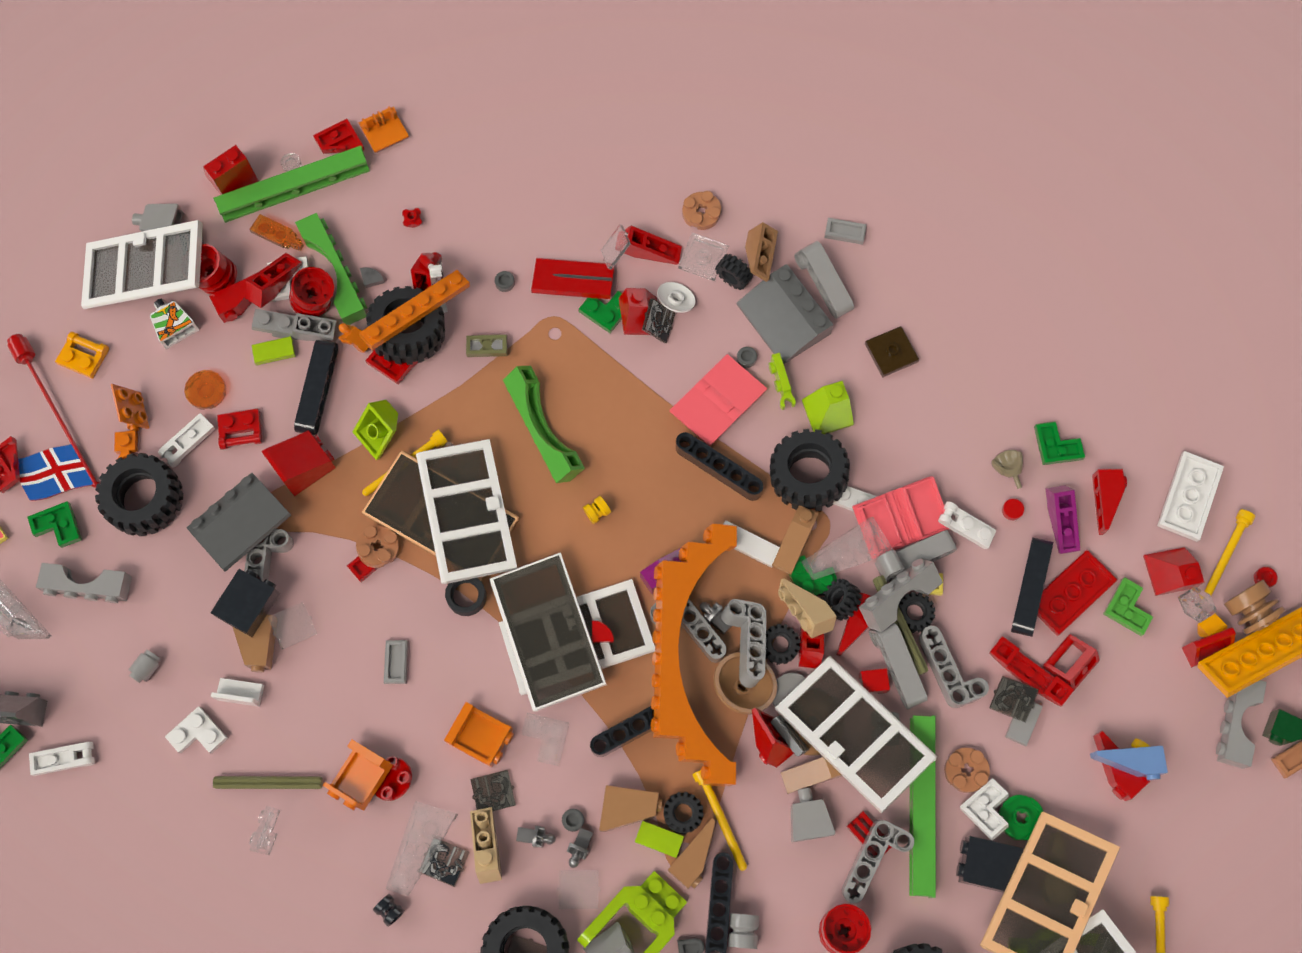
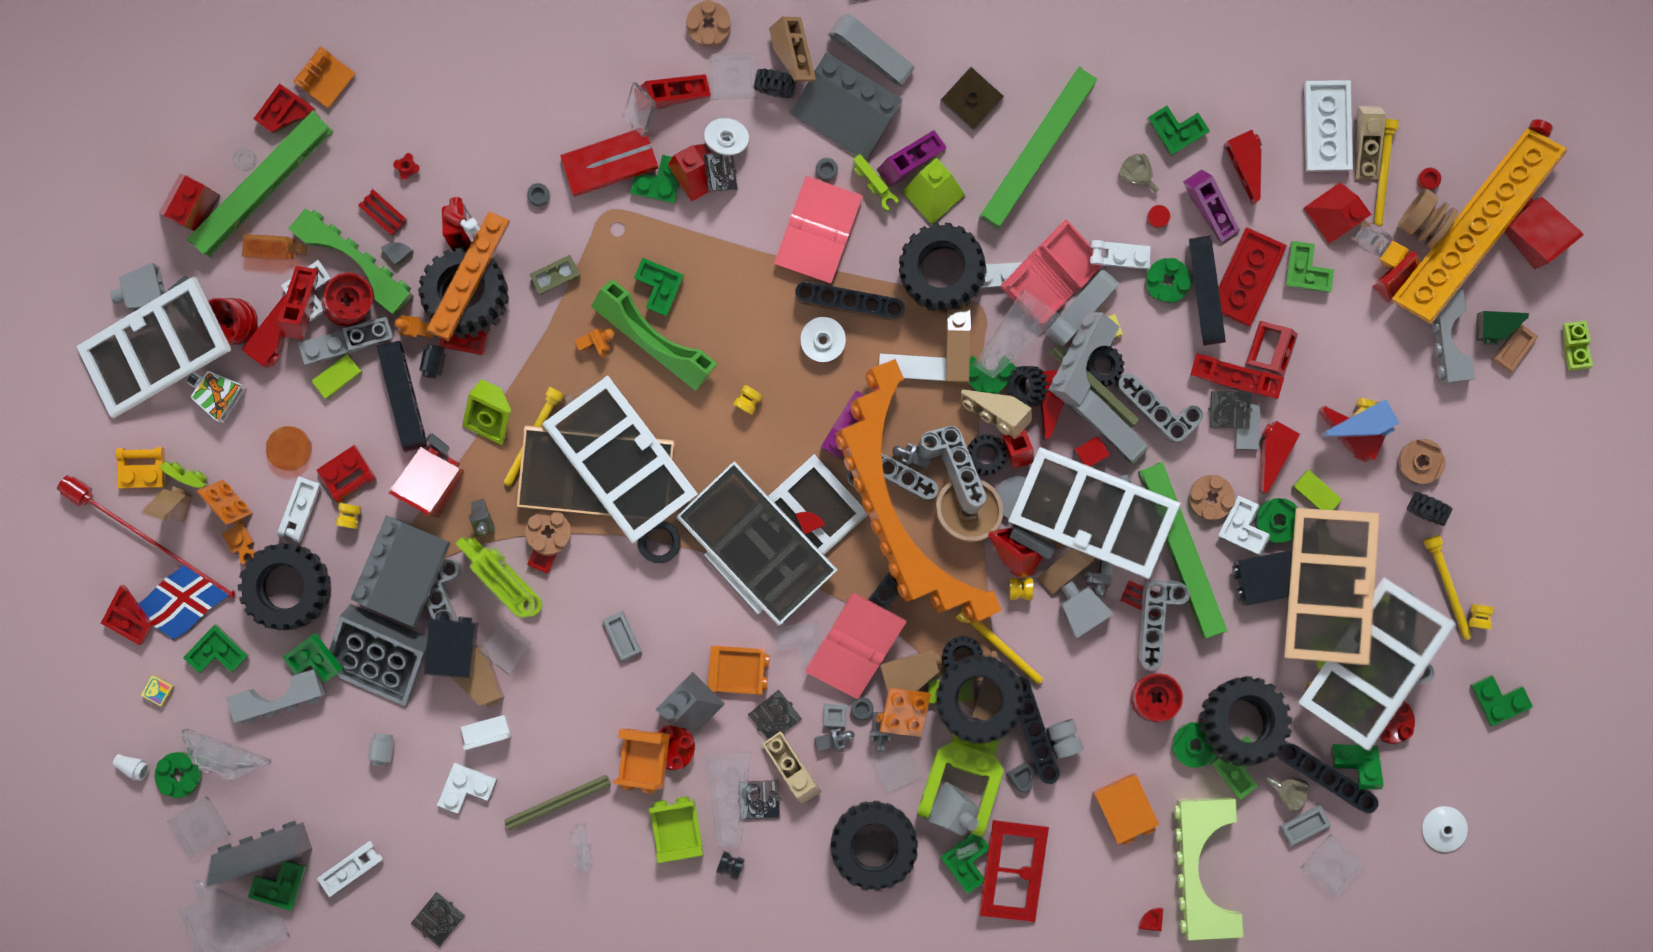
camera: 25 degrees left, 15 degrees up
(85, 389) = (169, 505): none -> medium nougat slope
(109, 371) = (191, 477): none -> lime slope
(112, 840) = (438, 919): none -> clear smoke piece
(133, 561) = (316, 654): none -> green plate
(182, 584) = (378, 654): none -> dark grey slope
(220, 466) = (348, 521): none -> yellow wheel
(317, 562) = (501, 577): none -> lime plate
(322, 430) = (437, 443): none -> dark grey tile
(328, 511) = (481, 518): none -> flat silver piece
(354, 370) = (432, 361): none -> black brick
(358, 854) = (676, 829): none -> lime panel
(370, 230) = (368, 199): none -> red tile
(423, 745) = (690, 704): none -> dark grey slope
(495, 408) = (597, 338): none -> orange piece
(545, 815) = (834, 715): none -> light grey tile
(572, 388) = (665, 284): none -> green plate
(591, 758) = (855, 646): none -> coral piece
(608, 838) = (904, 712): none -> orange hinge
(649, 854) = (957, 721): none -> black tyre
(682, 478) = (818, 328): none -> white dish
(761, 775) = (1021, 589): none -> yellow wheel
(814, 375) = (911, 158): none -> magenta slope
(837, 799) = (1100, 580): none -> flat silver piece
(930, 411) = (1038, 148): none -> bright green tile
(993, 575) = (1167, 293): none -> green plate
(1040, 753) = (1275, 449): none -> red slope
(1066, 806) = (1316, 491): none -> lime tile
(1161, 822) = (1433, 457): none -> nougat plate
(1167, 867) = (1429, 508): none -> black tyre
(1222, 523) = (1369, 141): none -> tan slope

